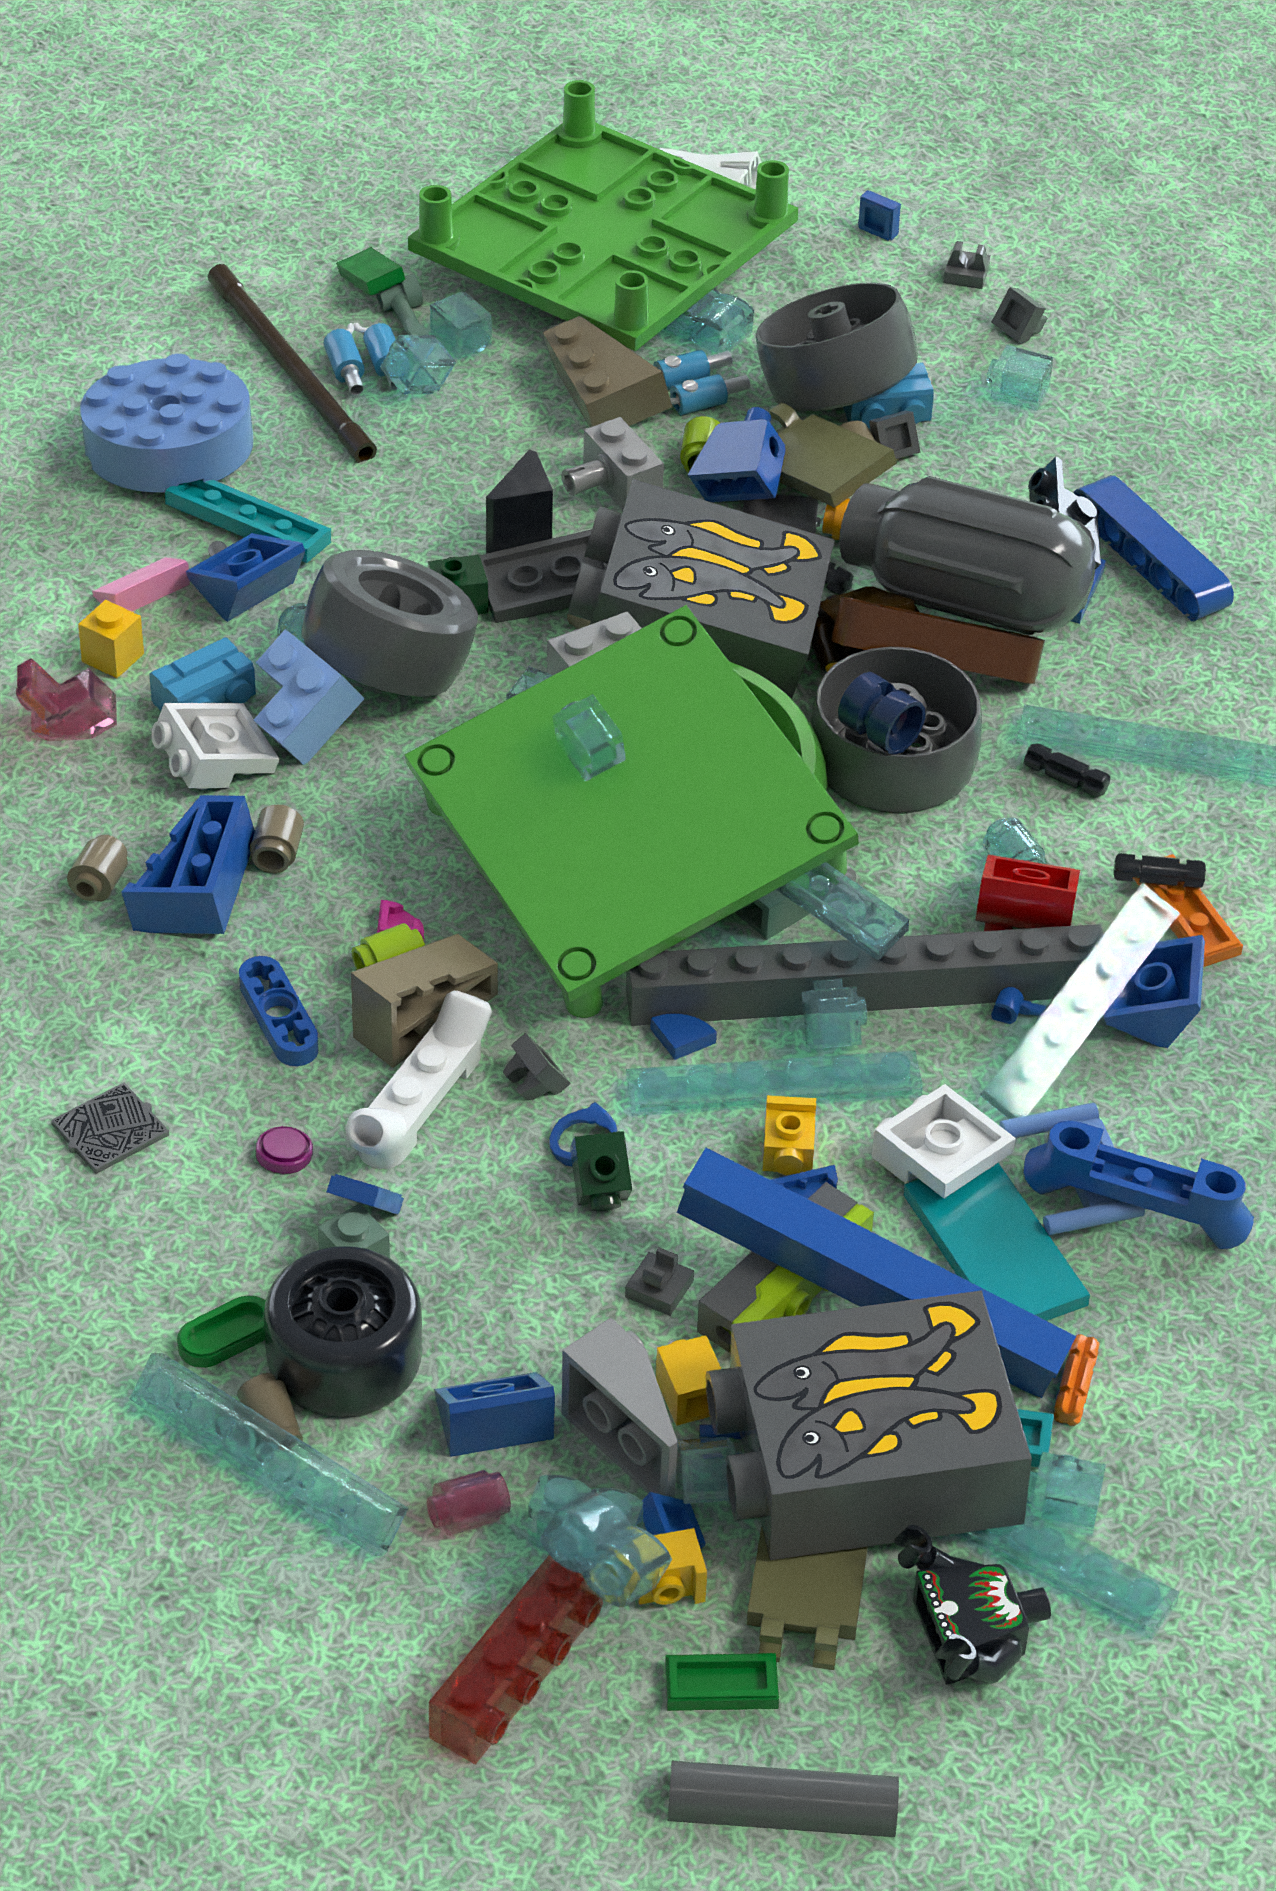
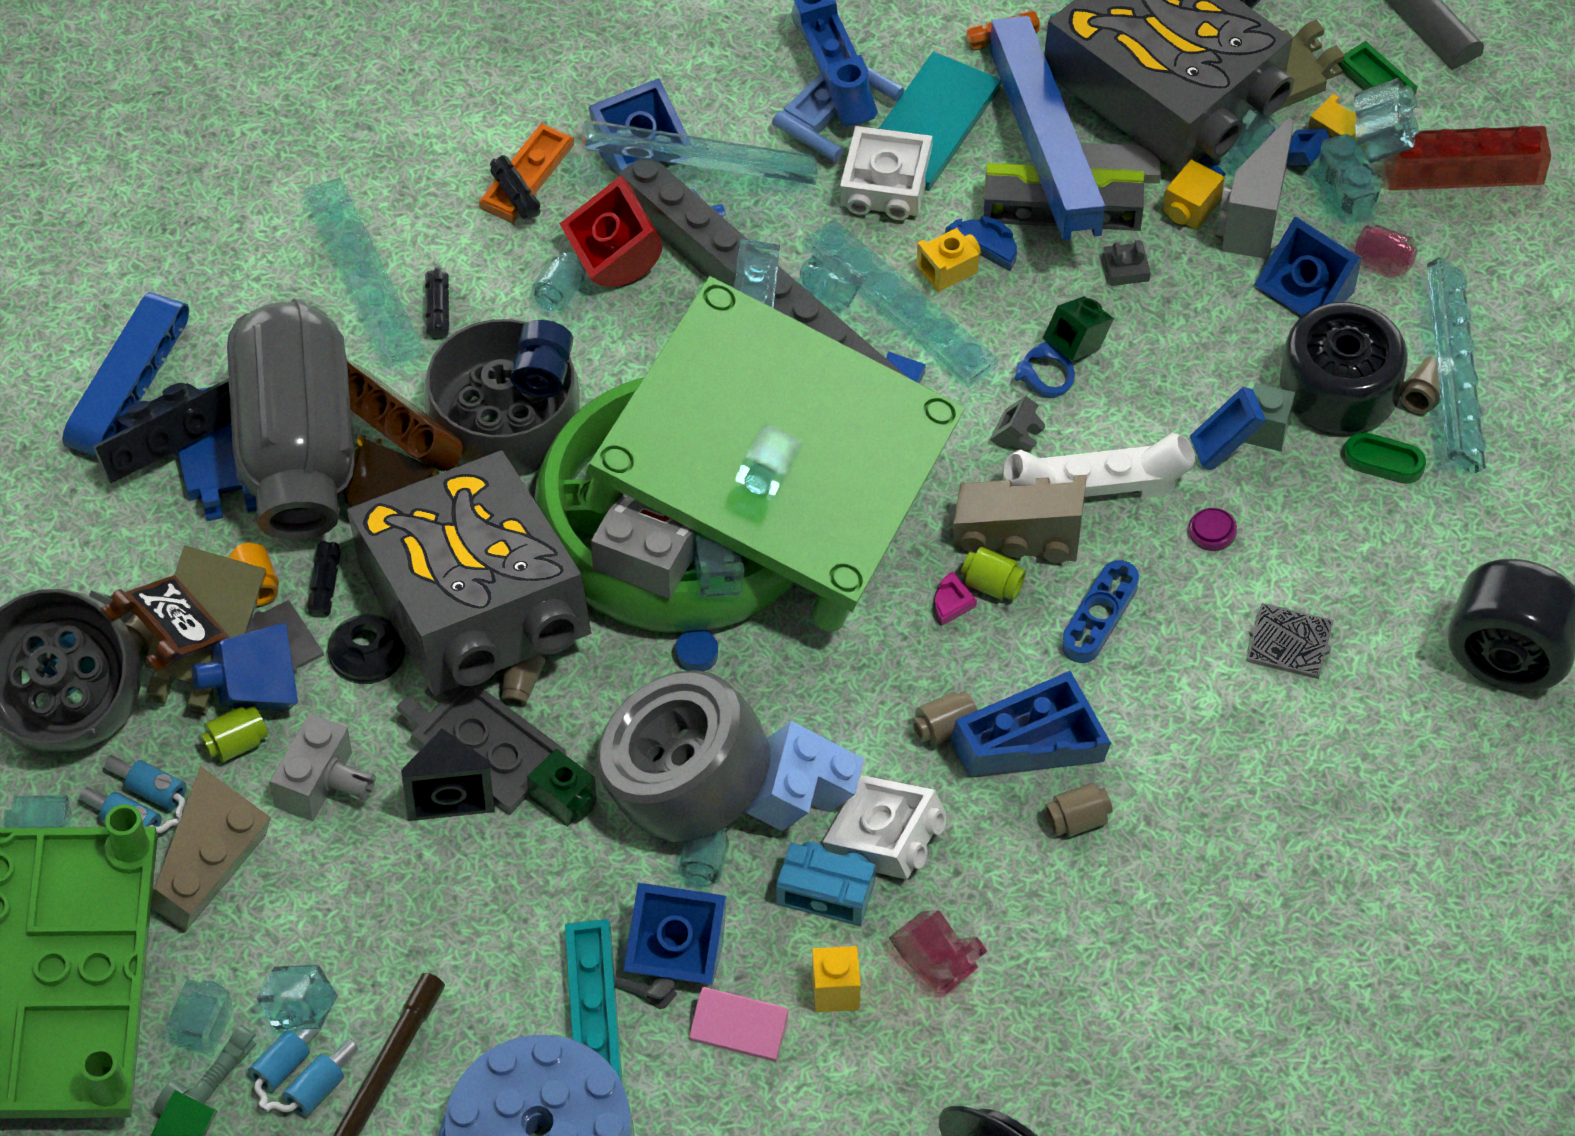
camera: 125 degrees left, 10 degrees up
(814, 402) = (172, 618): none -> flag

